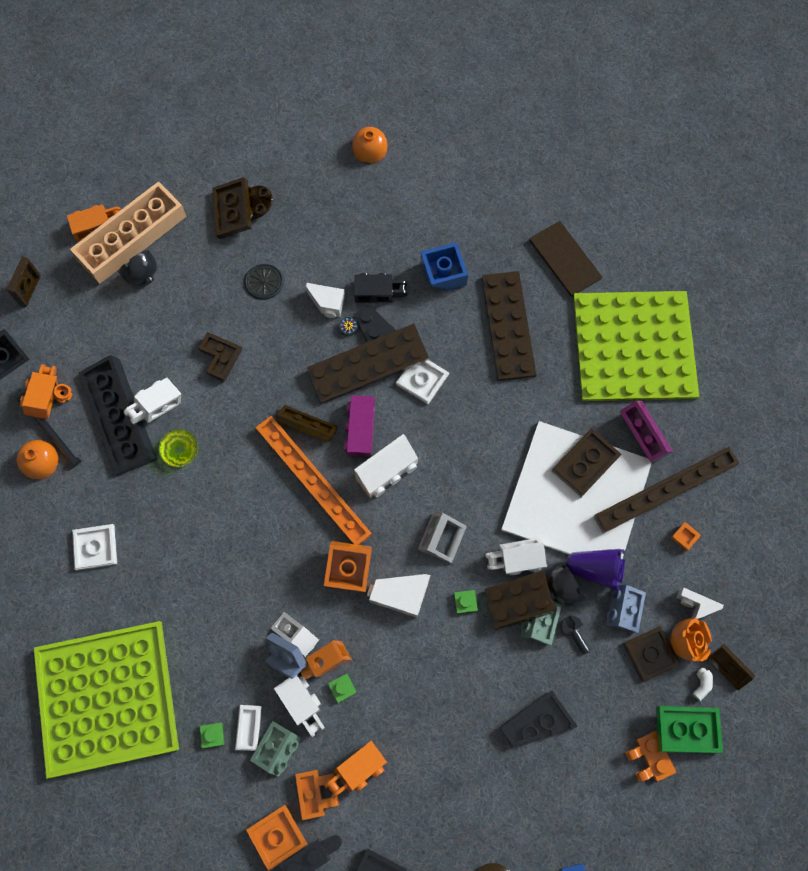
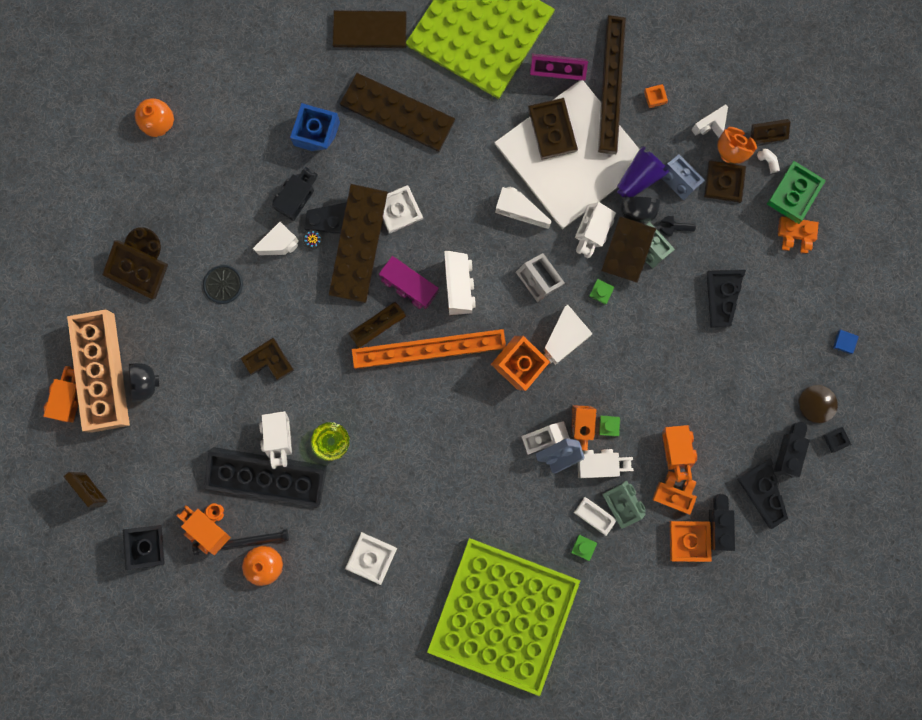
camera: 60 degrees left, 10 degrees up
(492, 474) = (517, 206): none -> white slope

